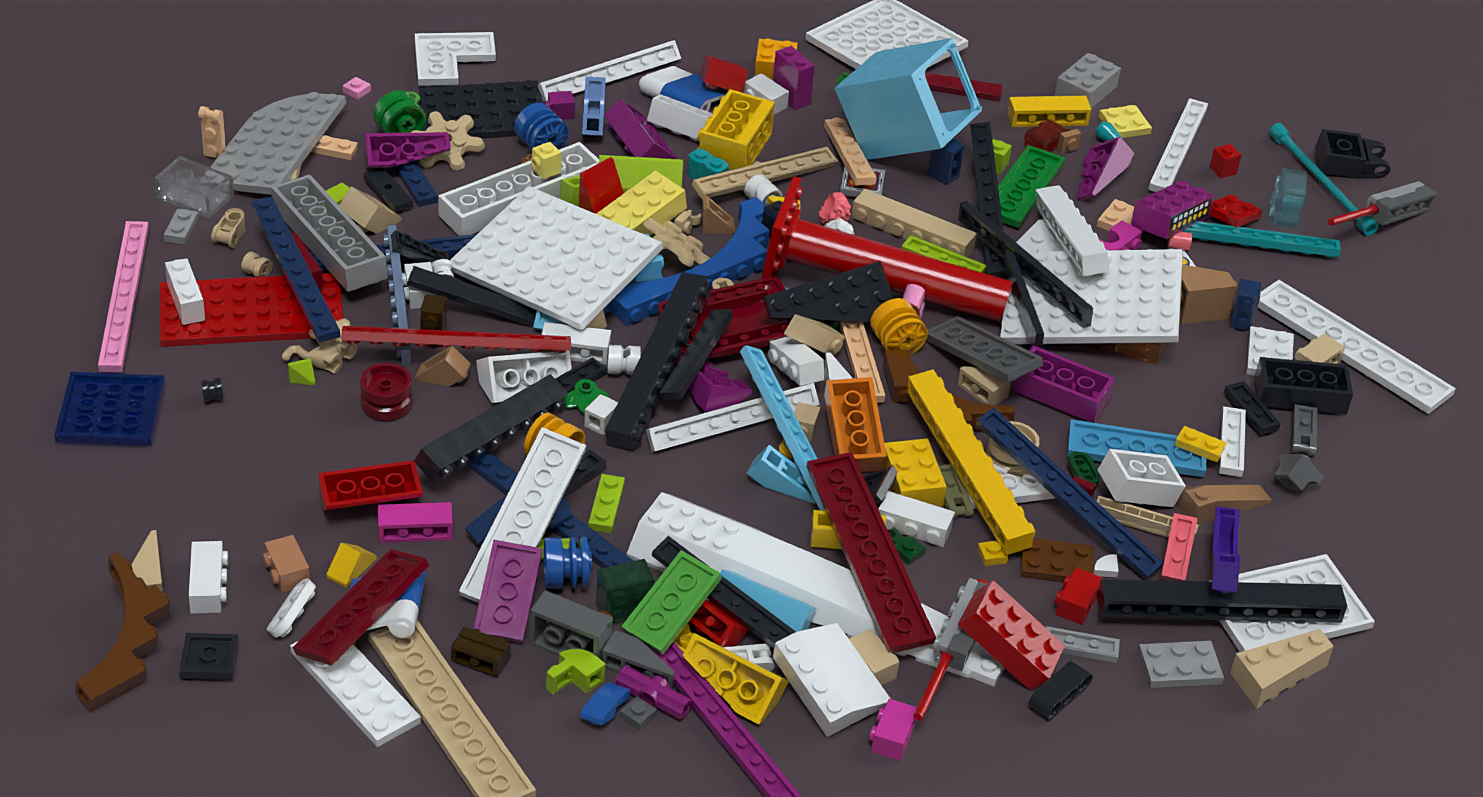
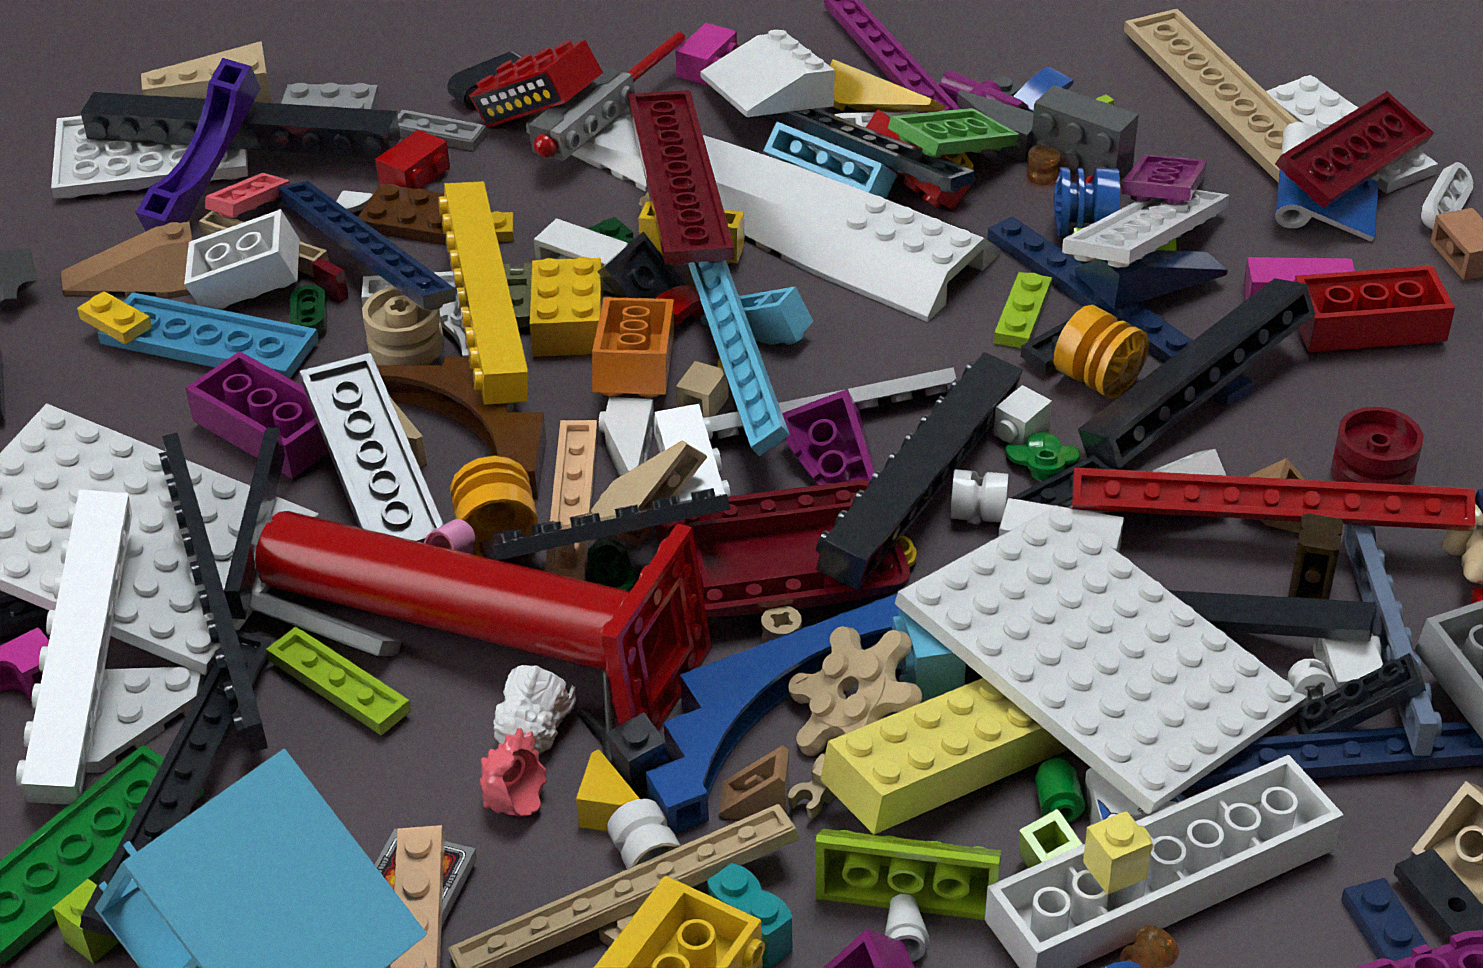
camera: 165 degrees left, 0 degrees up
(349, 563) = (1379, 247): yellow slope -> none
(481, 651) = (1195, 139): dark brown brick -> none
(599, 186) = (1000, 800): red slope -> none
(623, 588) = (1011, 171): clear green brick -> none
(696, 354) = (855, 466): black tile -> none
(875, 655) = (715, 113): tan brick -> none
(907, 221) = (363, 753): tan brick -> none
(1233, 433) = (48, 345): white plate -> none

